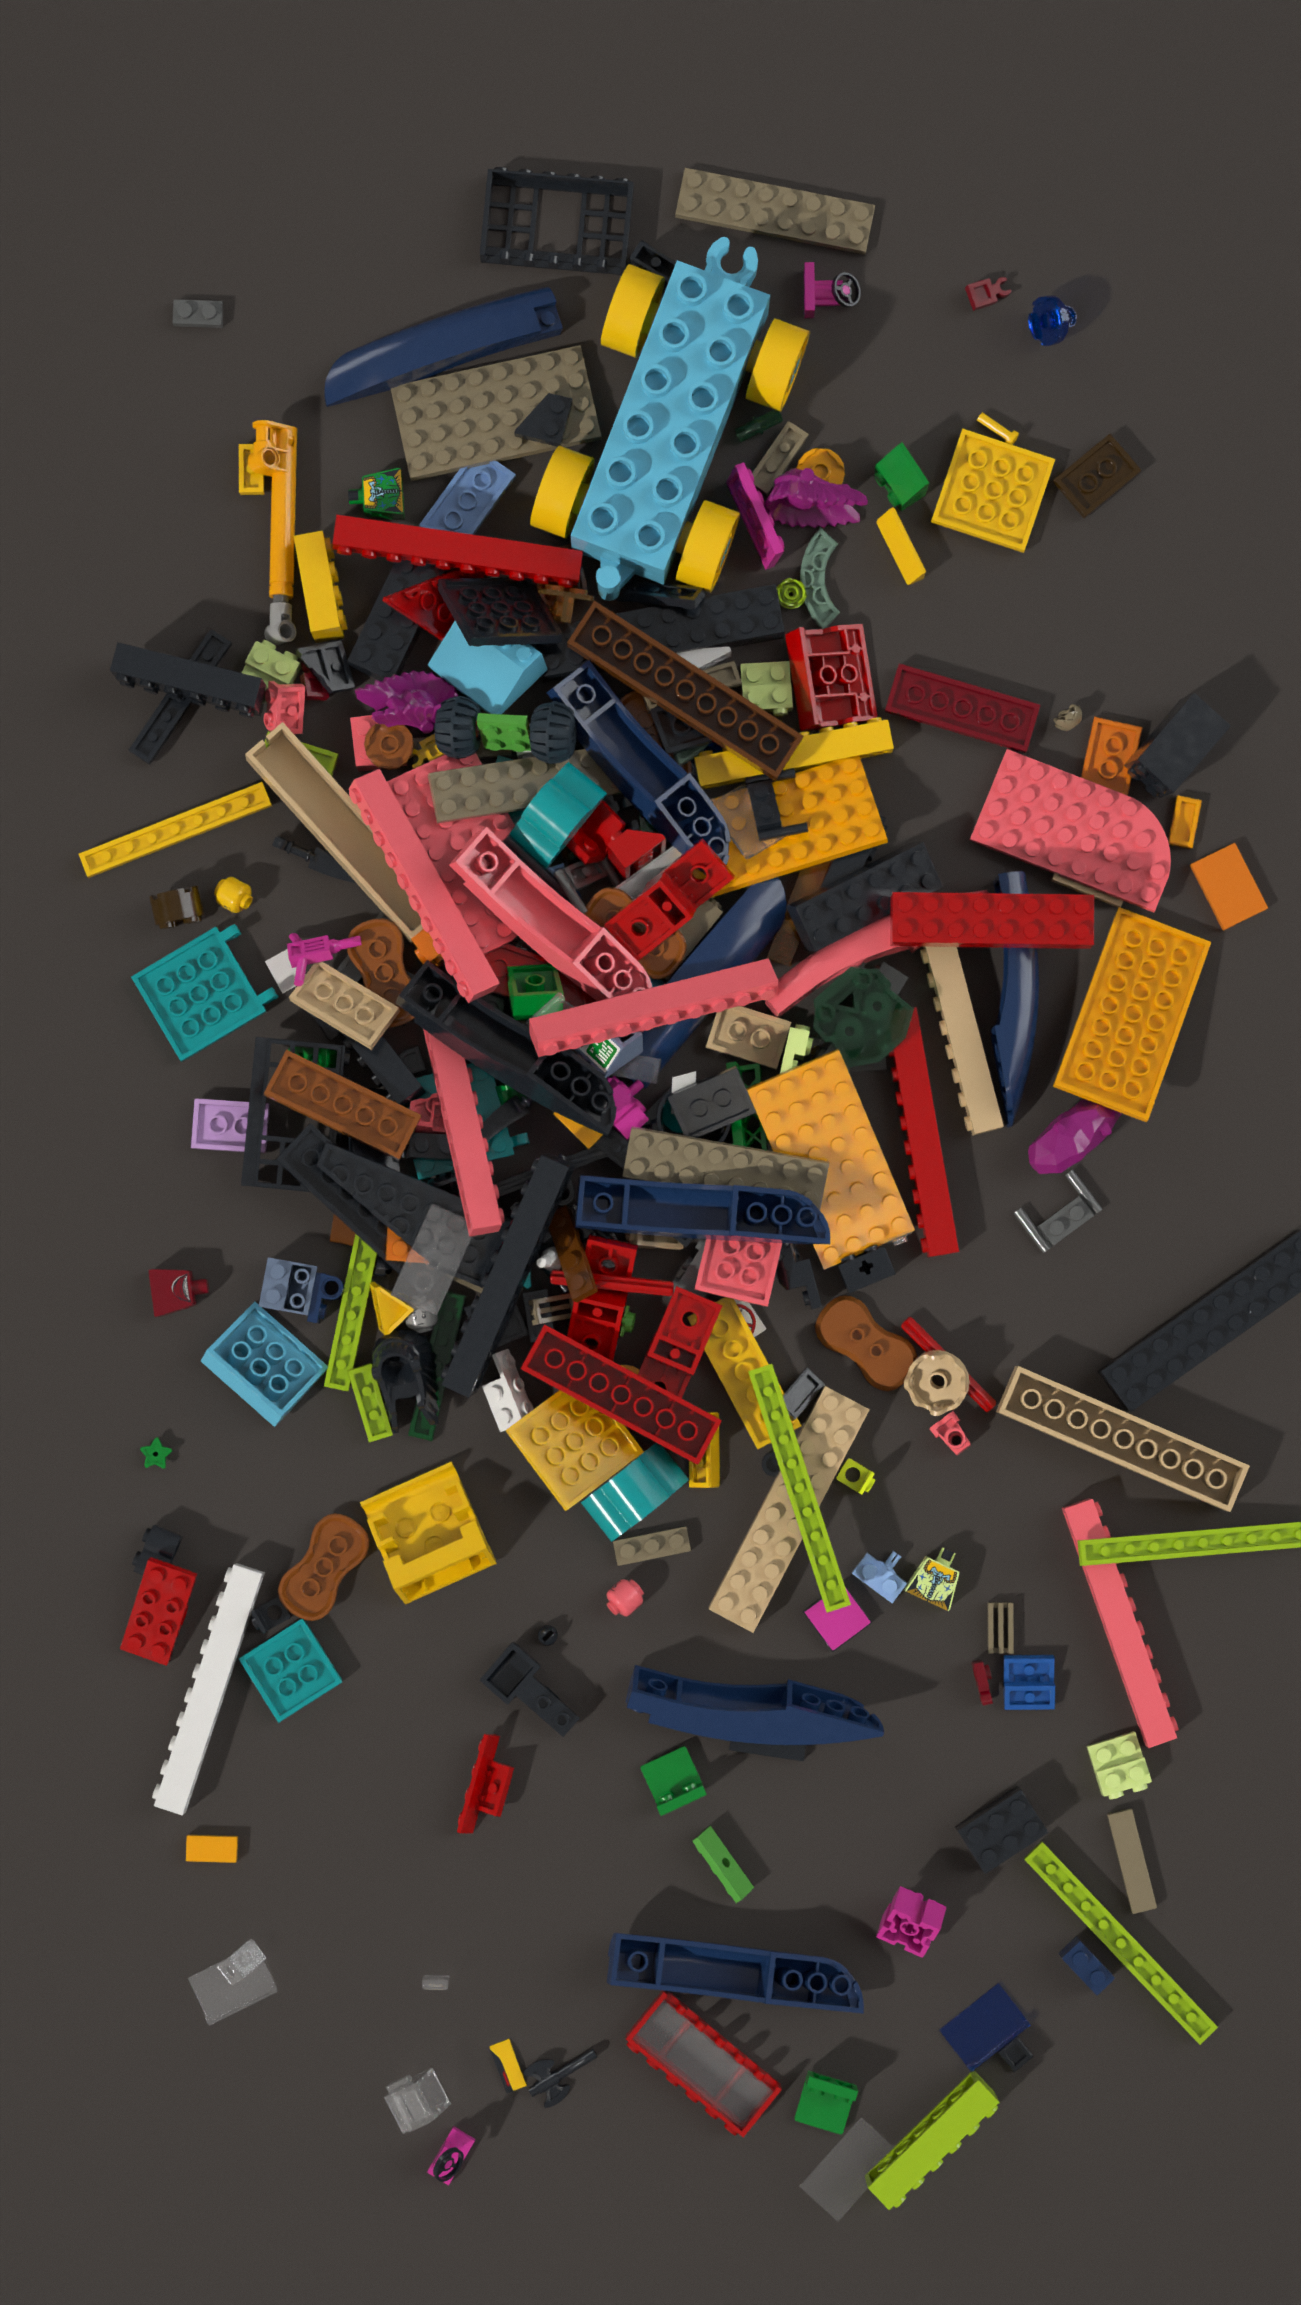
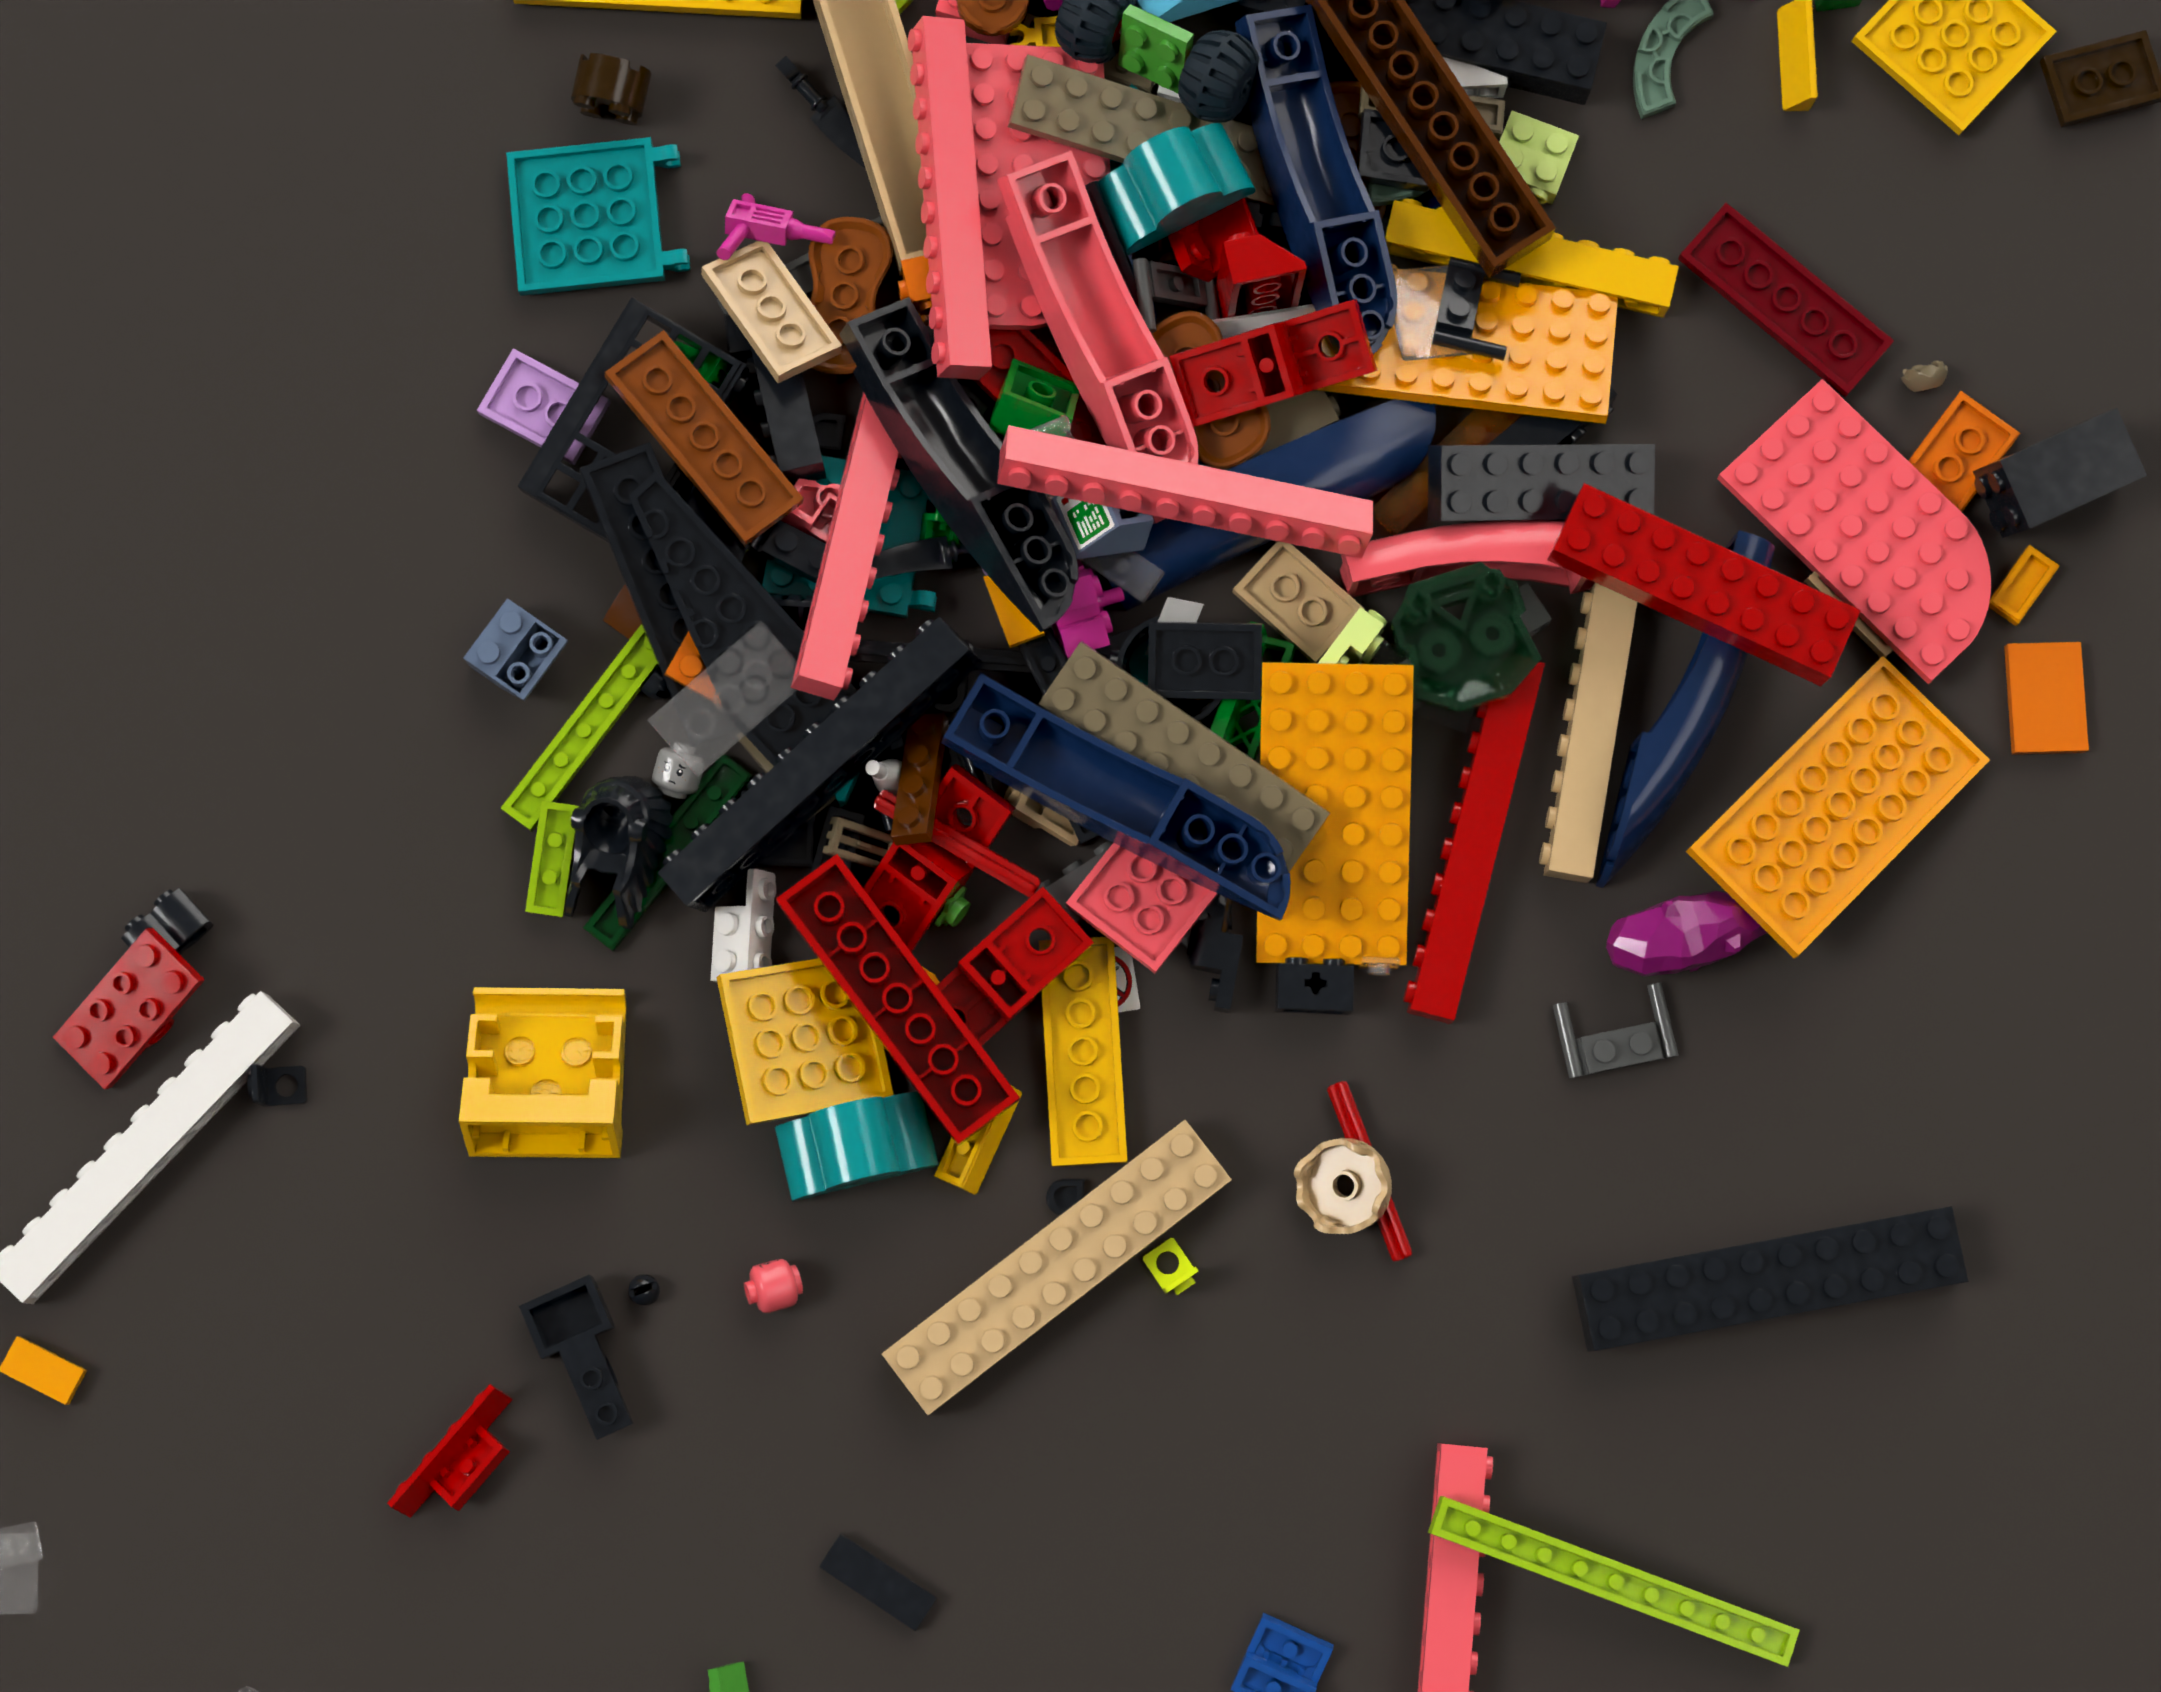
camera: 20 degrees right, 5 degrees down
(162, 1451) = (238, 803): green plate -> none
(174, 1290) = (362, 589): dark red torso -> none
(233, 894) = (693, 107): yellow head -> none
(264, 1364) = (434, 741): medium azure slope -> none
(282, 971) = (709, 236): white sticker -> none
(290, 1670) = (269, 1173): teal plate -> none
(313, 1583) = (356, 1068): dark orange plate -> none
(317, 1308) = (554, 682): dark blue plate -> none
(389, 1309) = (638, 741): yellow slope -> none
(651, 1546) = (844, 1232): dark tan plate -> none
(673, 1780) = (721, 1572): green bracket -> none
(750, 1713) = (872, 1528): dark blue slope -> none
(798, 590) = (1621, 39): lime plate -> none
(799, 1488) = (1084, 1242): lime plate -> none
(801, 1392) = (1144, 1116): tile -> none
(831, 676) = (1626, 178): red piece -> none
(838, 1625) = (1055, 1450): dark pink tile -> none
(850, 1330) = (1256, 1064): dark orange plate -> none
(881, 1575) = (1142, 1421): light blue plate -> none
(935, 1580) = (1215, 1461): torso -> none
(949, 1428) = (1330, 1260): coral plate -> none
(982, 1675) = (1220, 1626): dark red plate -> none
(1010, 1630) = (1290, 1578): dark tan tile -> none
(1122, 1438) = (1568, 1385): tan brick -> none

